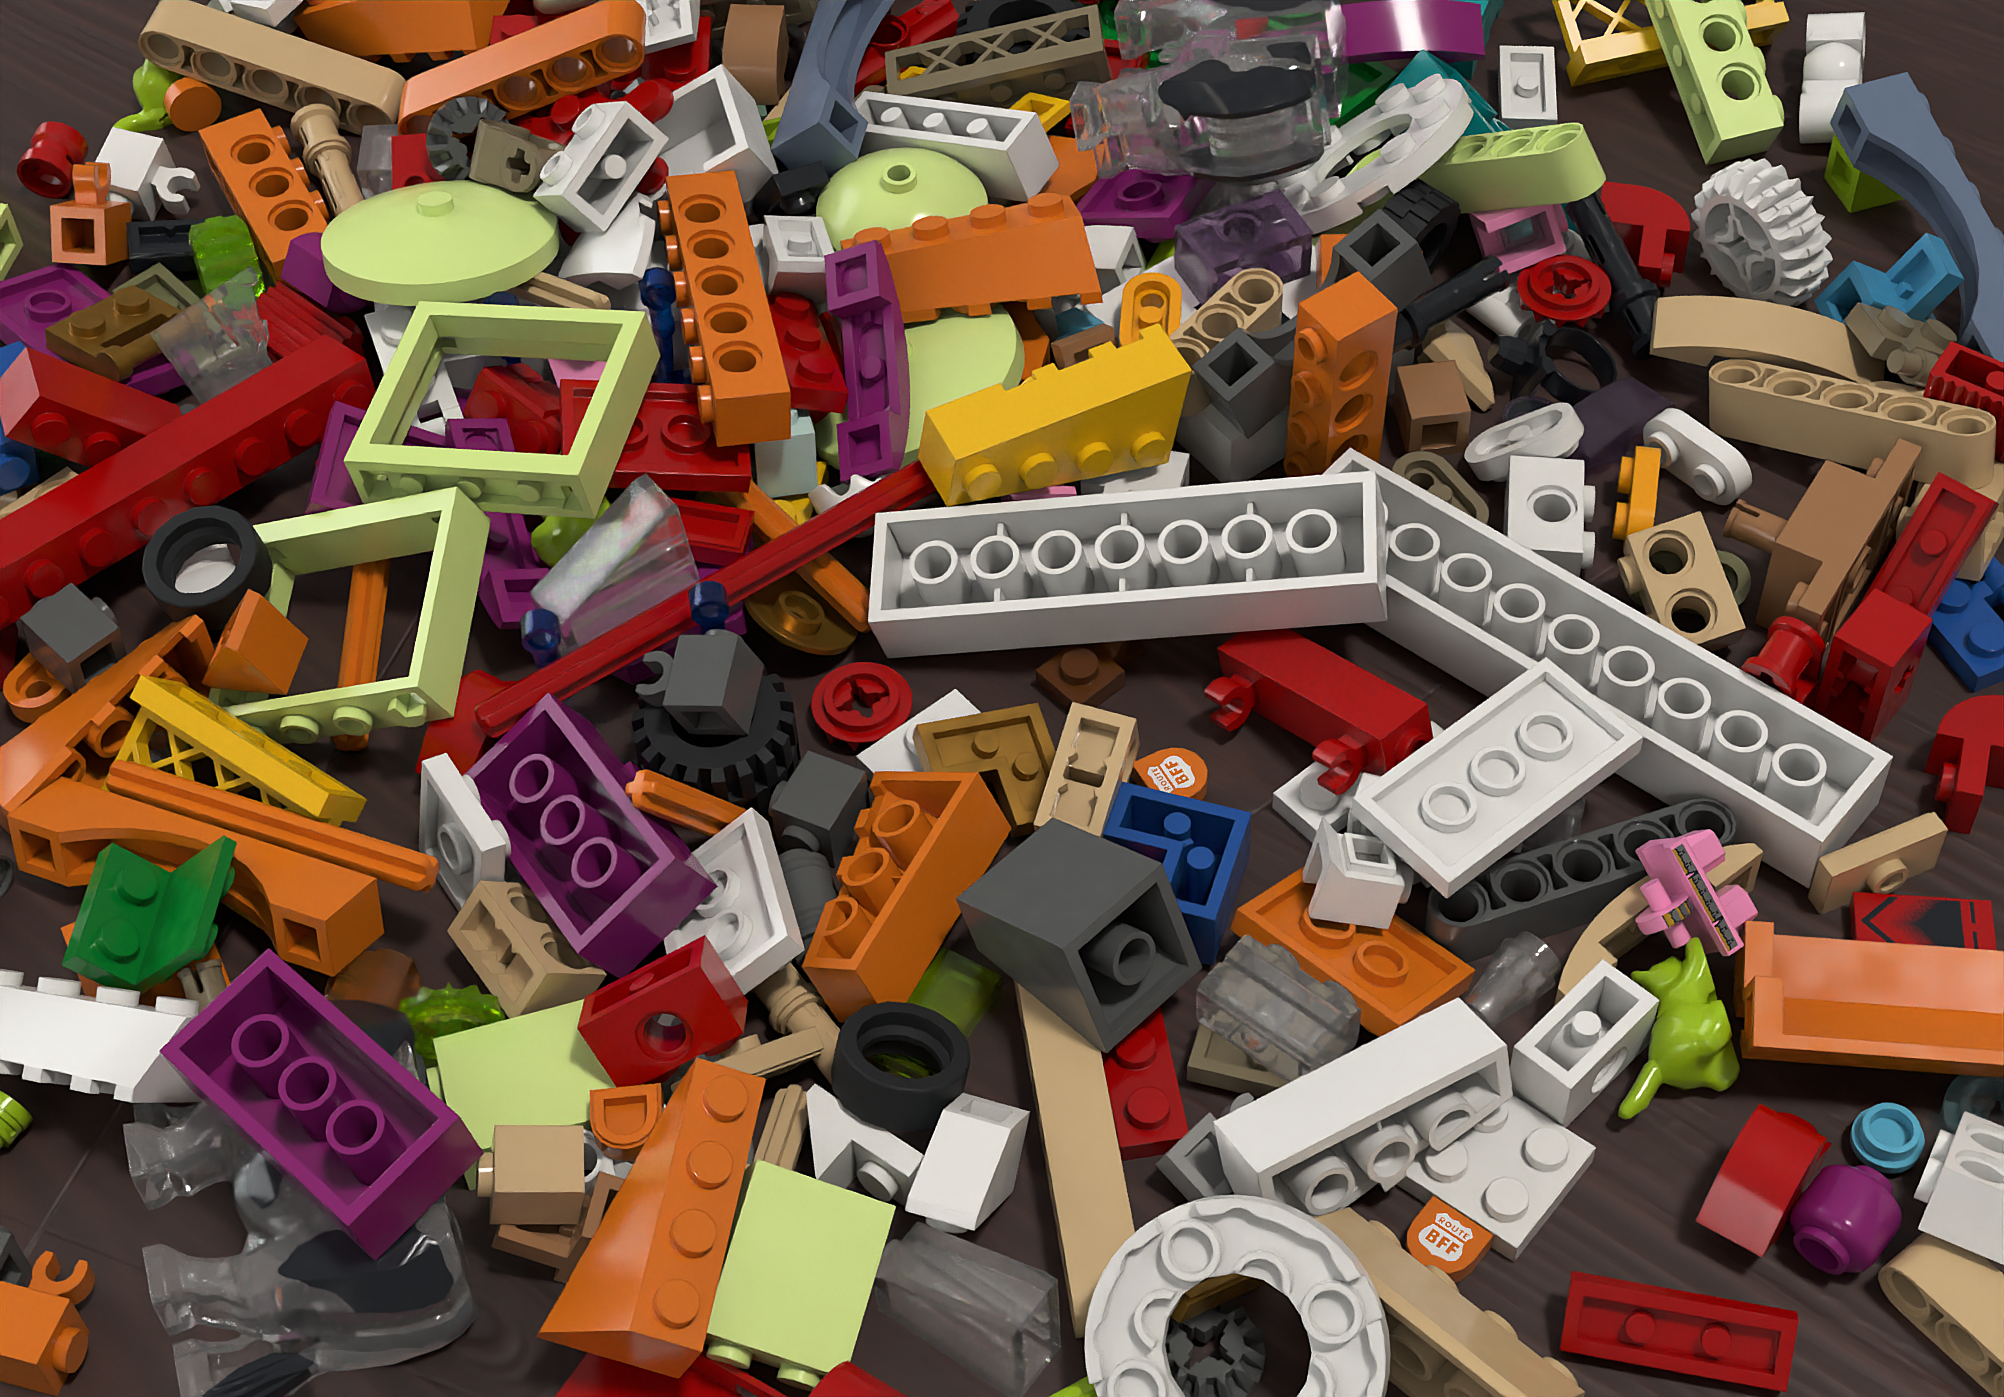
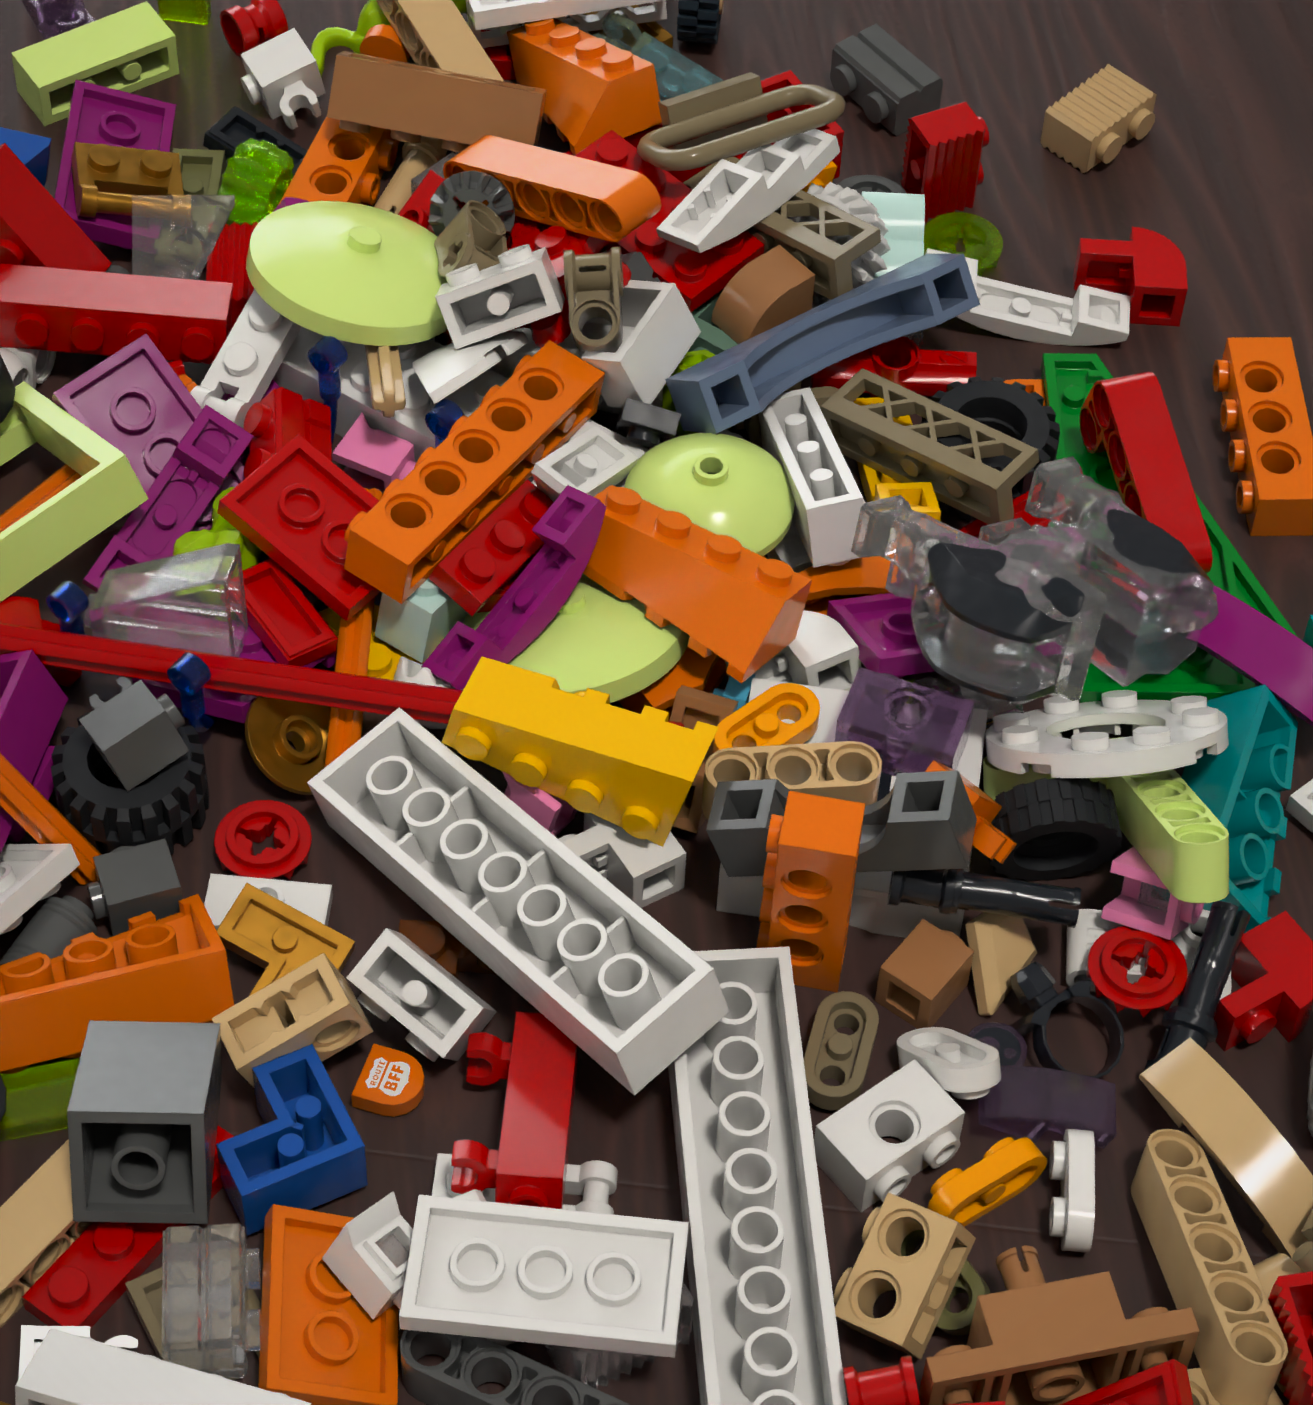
camera: 40 degrees right, 0 degrees up
(89, 226) = (206, 90): orange brick -> none
(317, 96) = (431, 103): none -> medium nougat brick
(499, 478) = (262, 489): yellowish green window -> none
(676, 110) = (595, 291): none -> dark tan piece
(1161, 691) = (421, 995): none -> white brick

